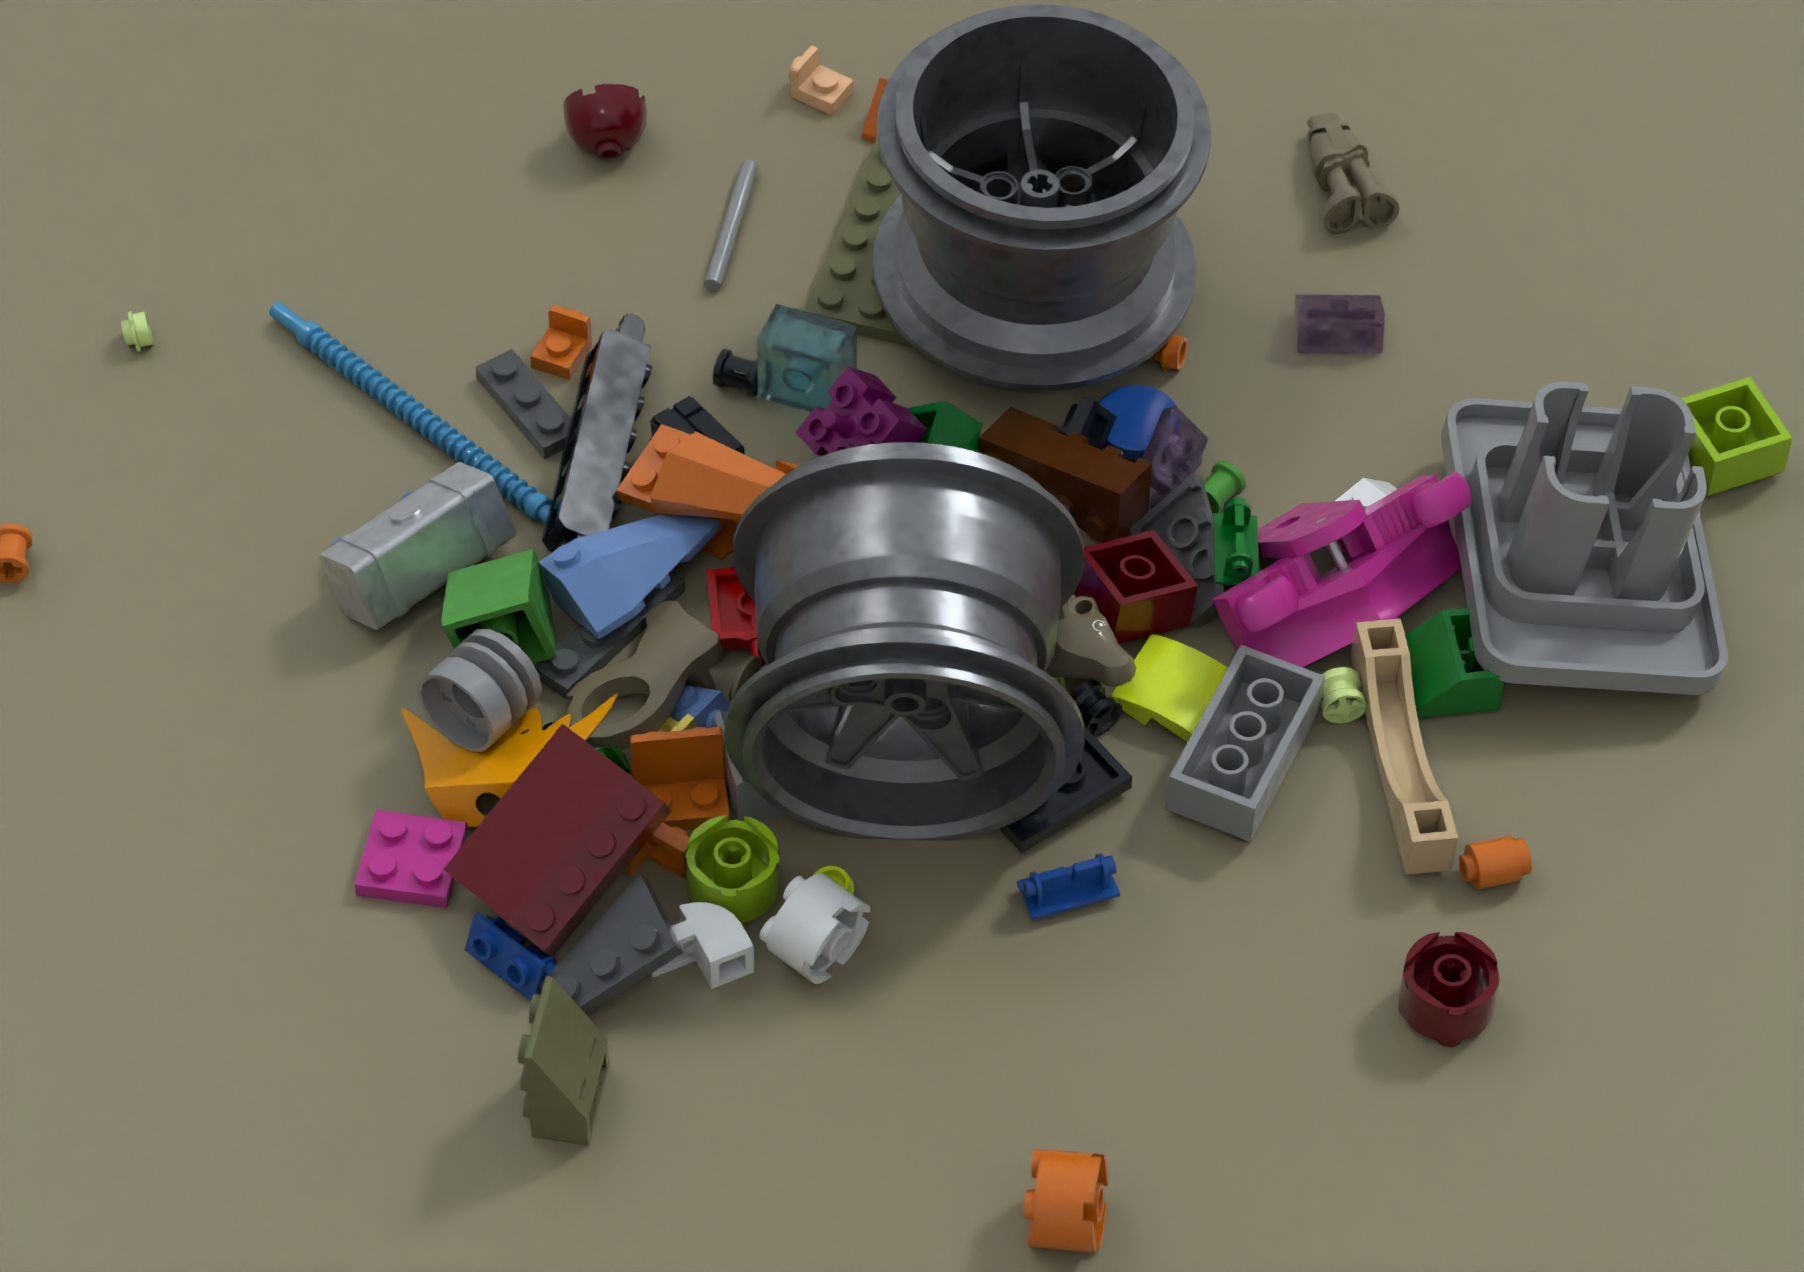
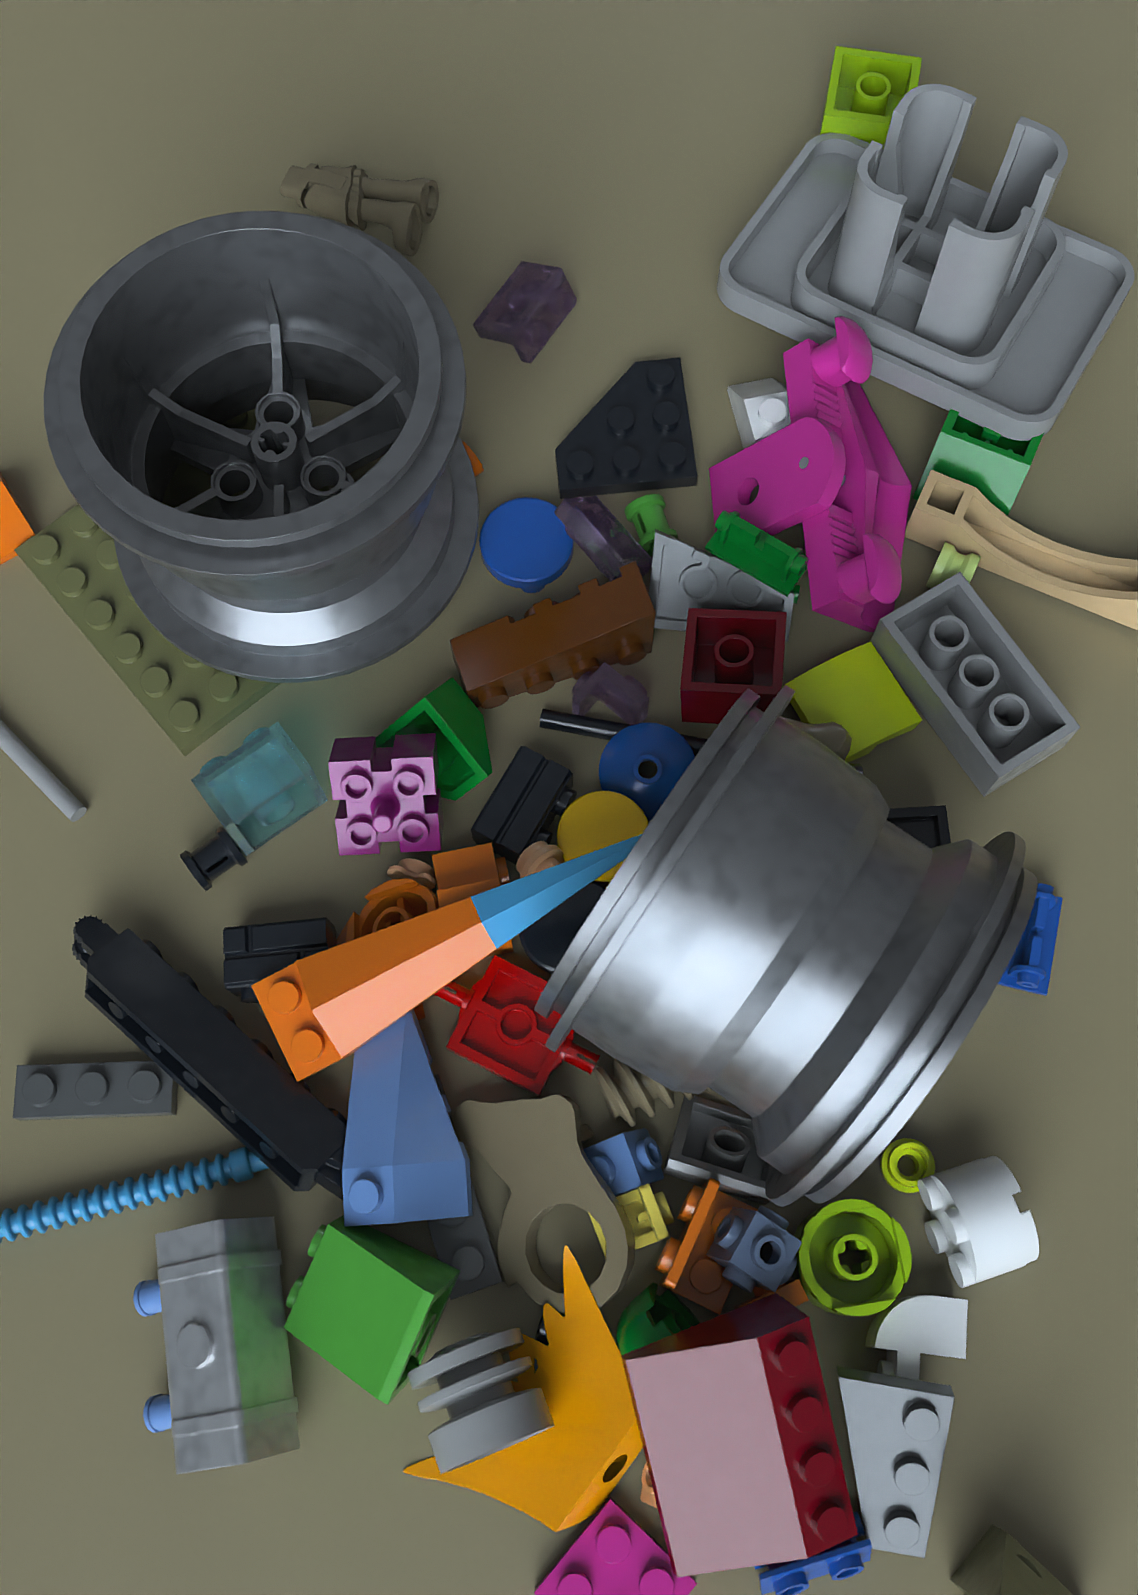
camera: 55 degrees left, 20 degrees up
(563, 343) = (47, 1008): orange bracket -> none
(694, 795) = (755, 1249): none -> sand blue brick
(1089, 420) = (508, 590): black panel -> none
(1289, 446) = (632, 437): none -> black plate

